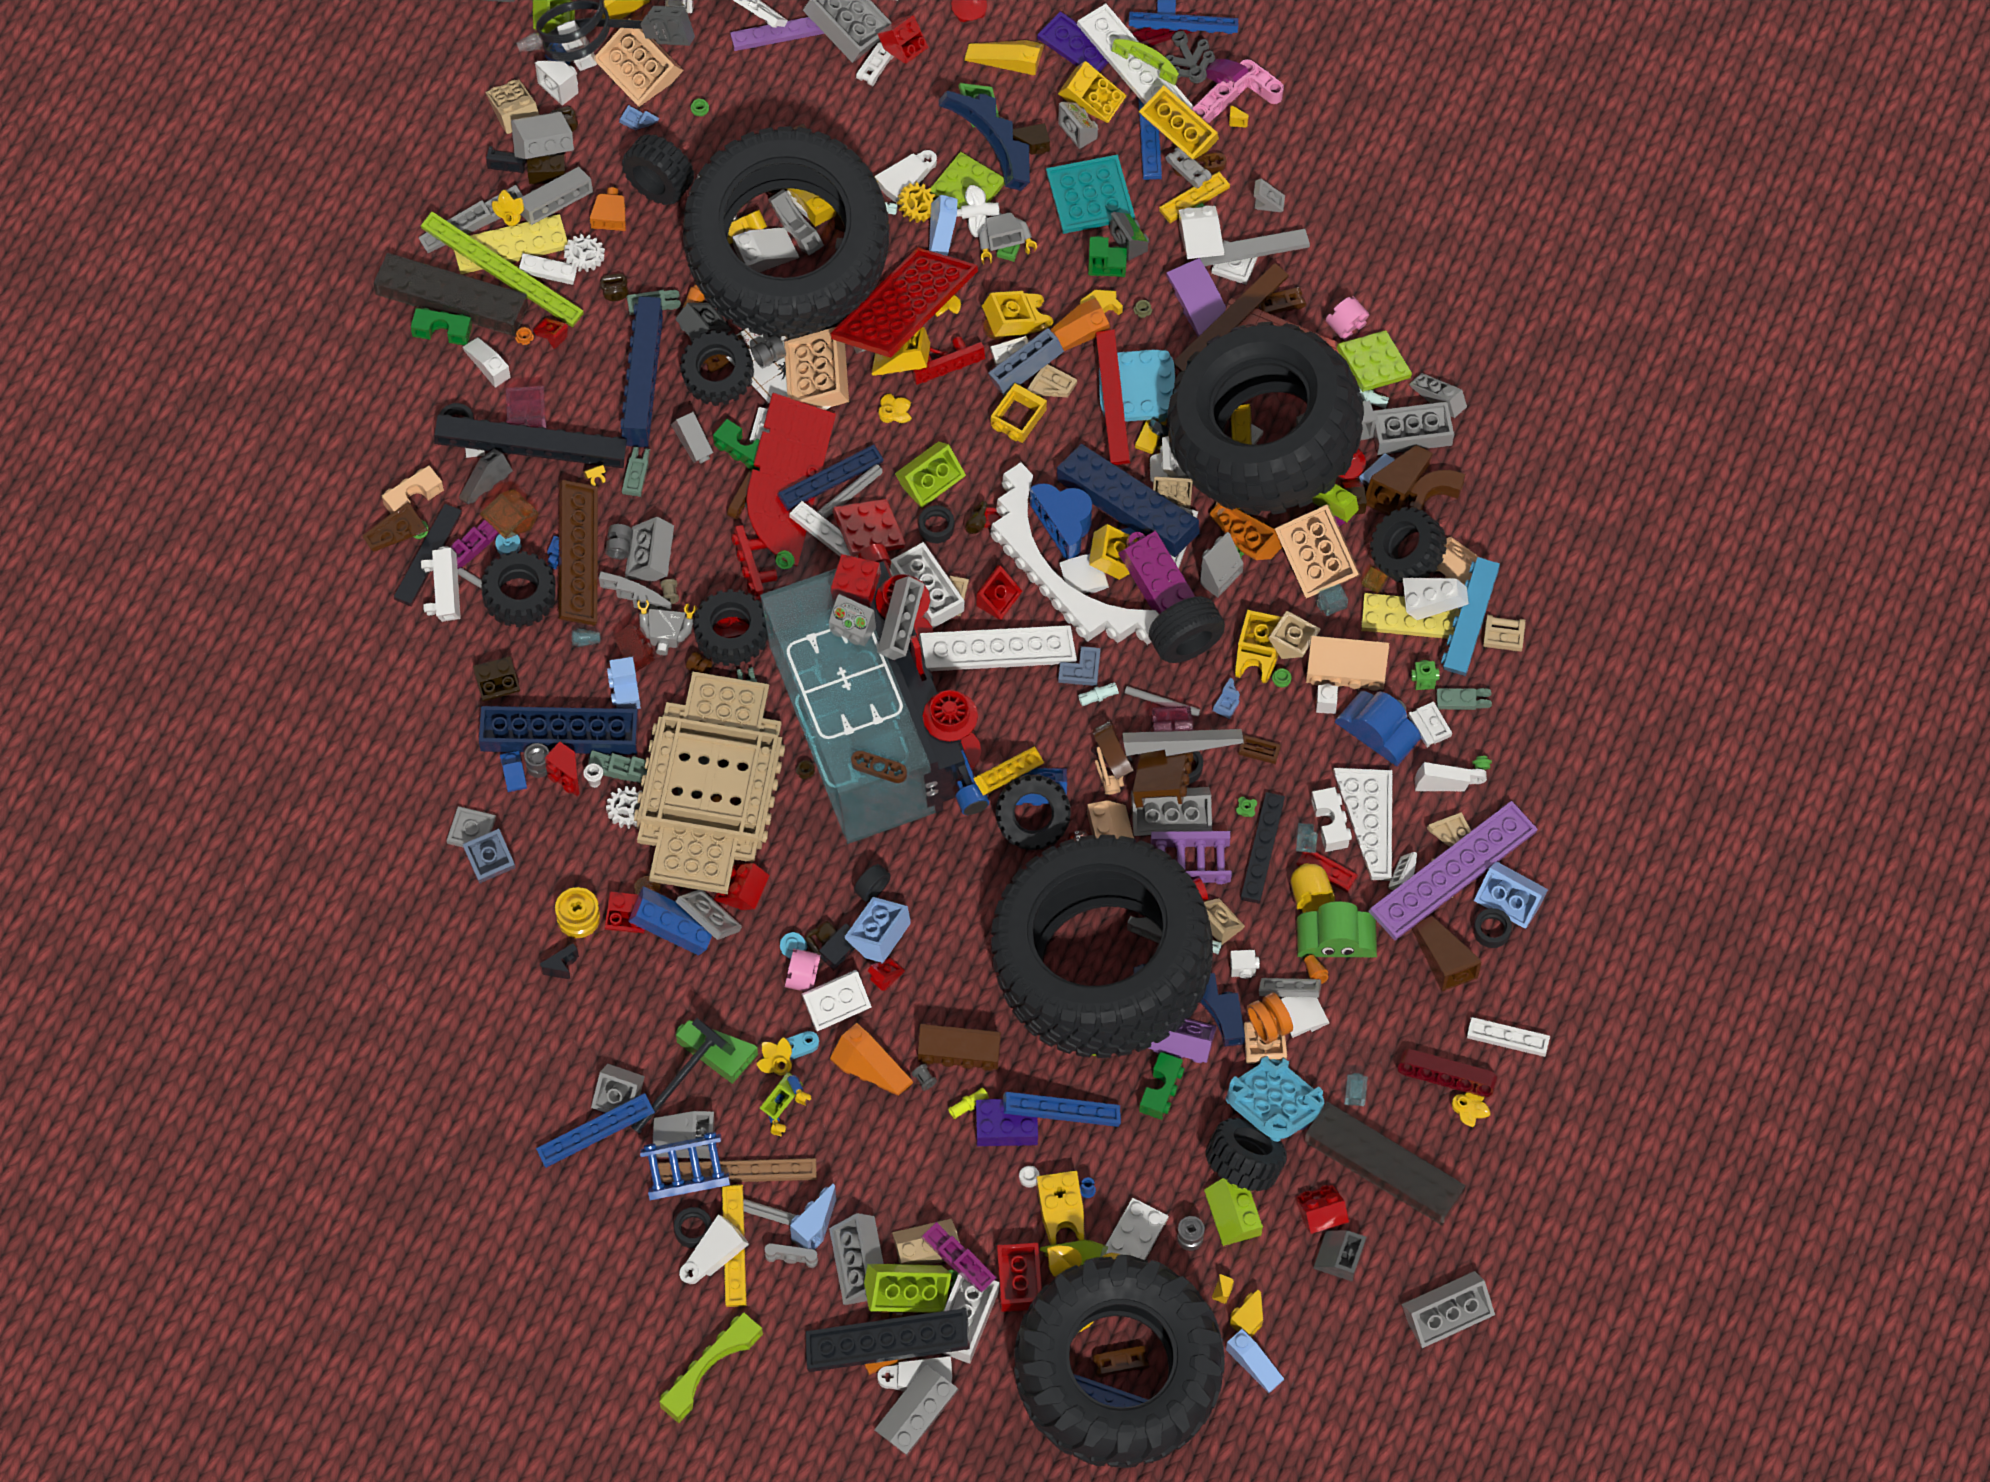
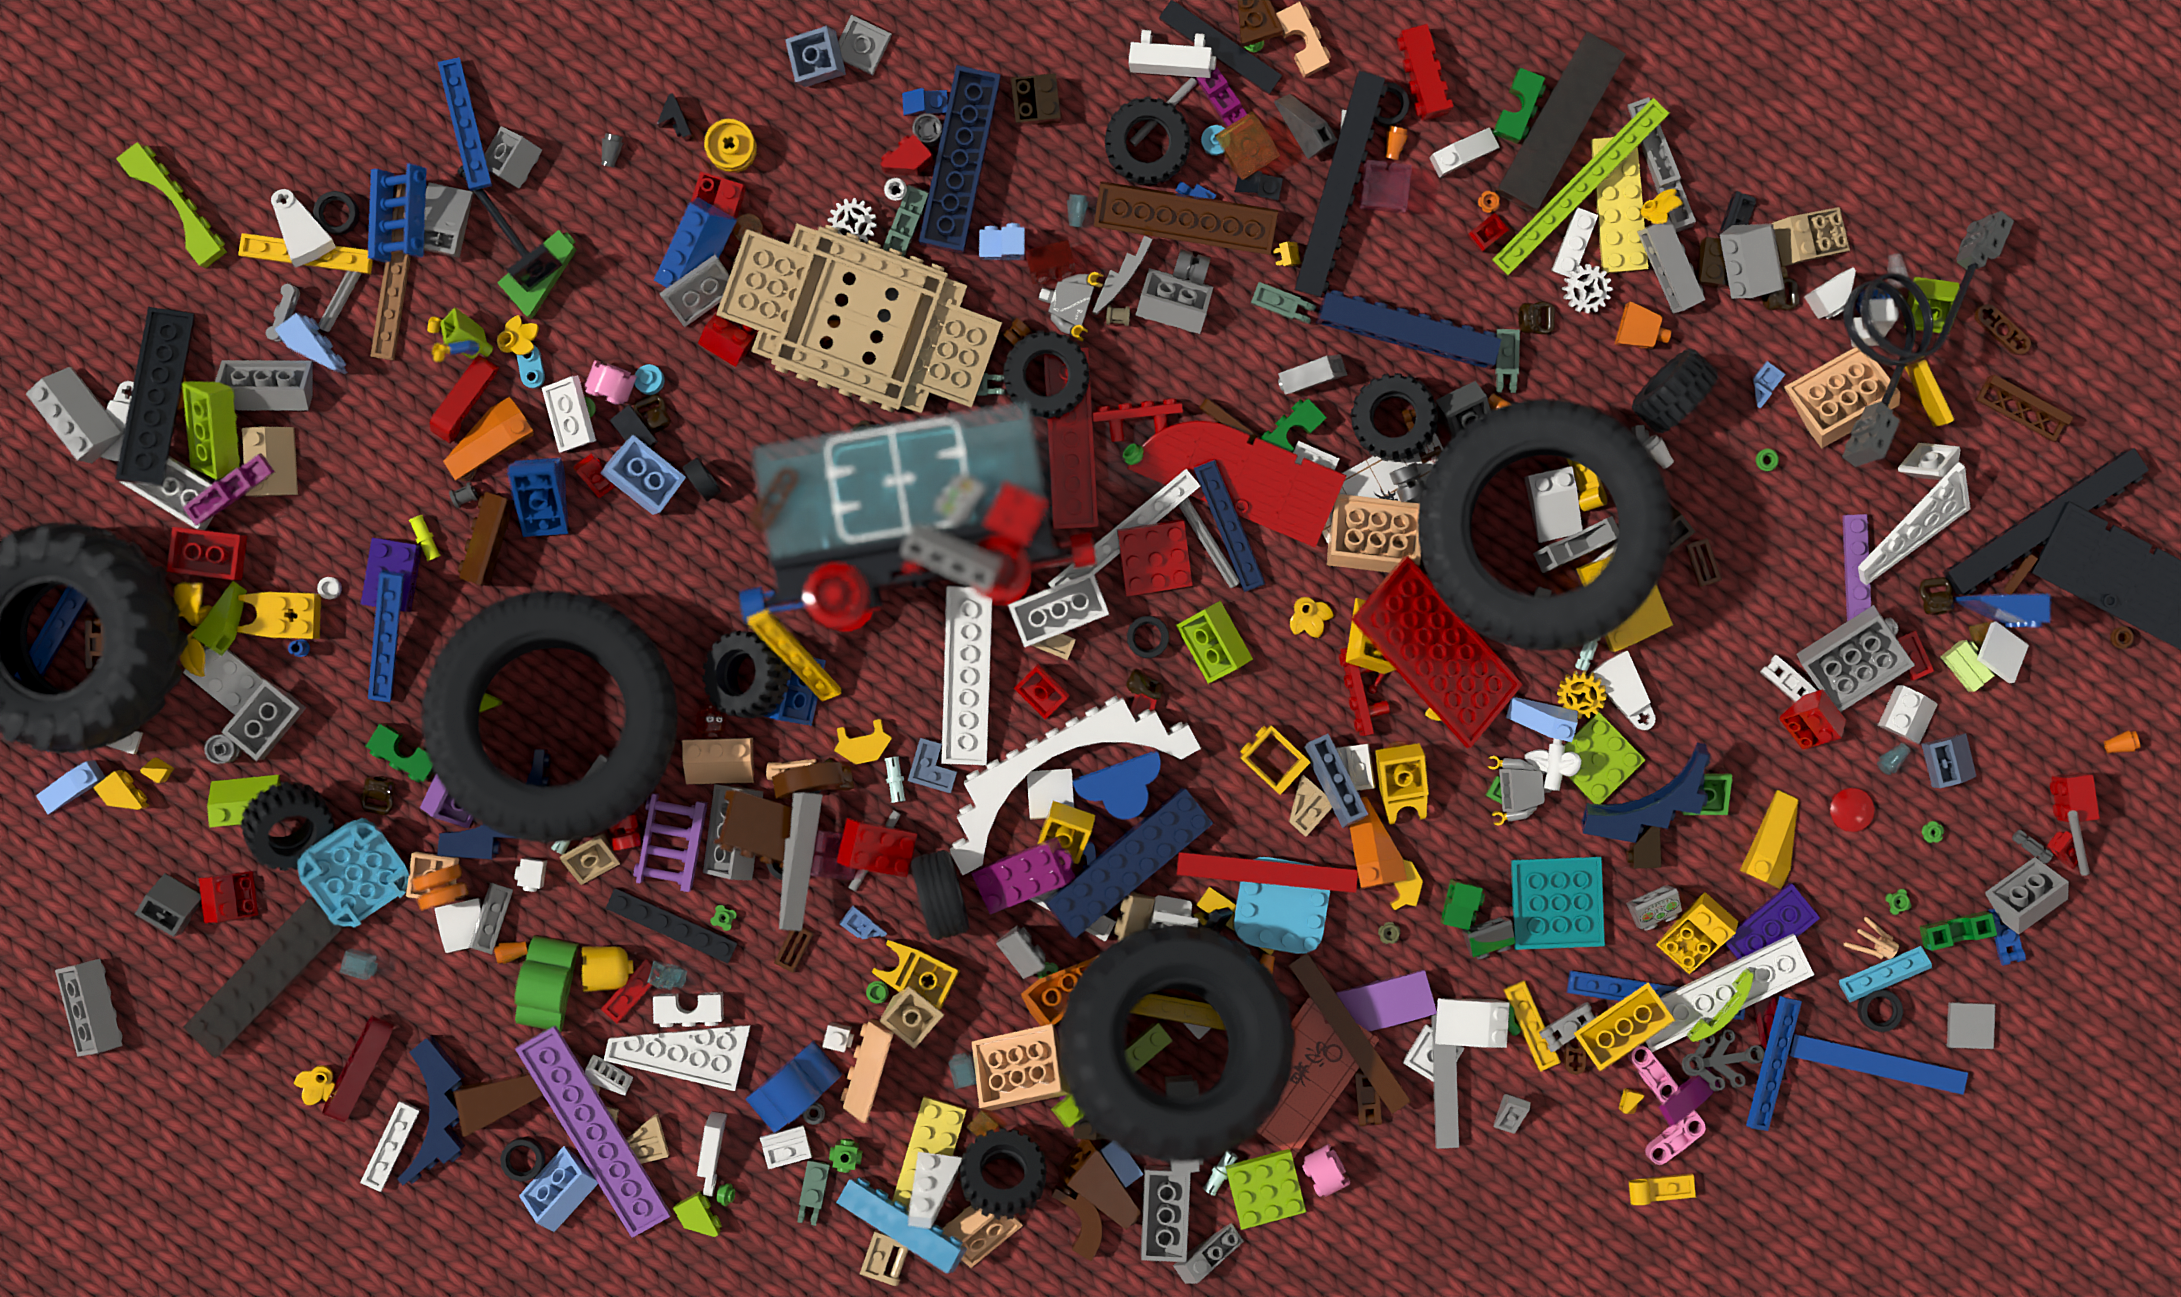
camera: 100 degrees right, 25 degrees up
(426, 396) = (1424, 73): none -> red wedge
(486, 411) = (1395, 141): none -> orange cone
(541, 501) = (1259, 186): none -> black slope
(594, 1011) = (611, 149): none -> dark grey cone
(841, 1088) = (460, 400): none -> red beam
(908, 1004) = (540, 496): none -> blue brick
(1076, 722) = (863, 748): none -> yellow piece
(1158, 689) = (876, 848): none -> red brick
(1158, 1199) = (263, 720): none -> light grey slope
(1198, 1102) = (380, 789): none -> dark brown piece
(1302, 84) = (1661, 1188): none -> yellow plate
(1468, 997) = (440, 1076): none -> dark blue arch
(1505, 782) = (696, 1215): none -> lime slope

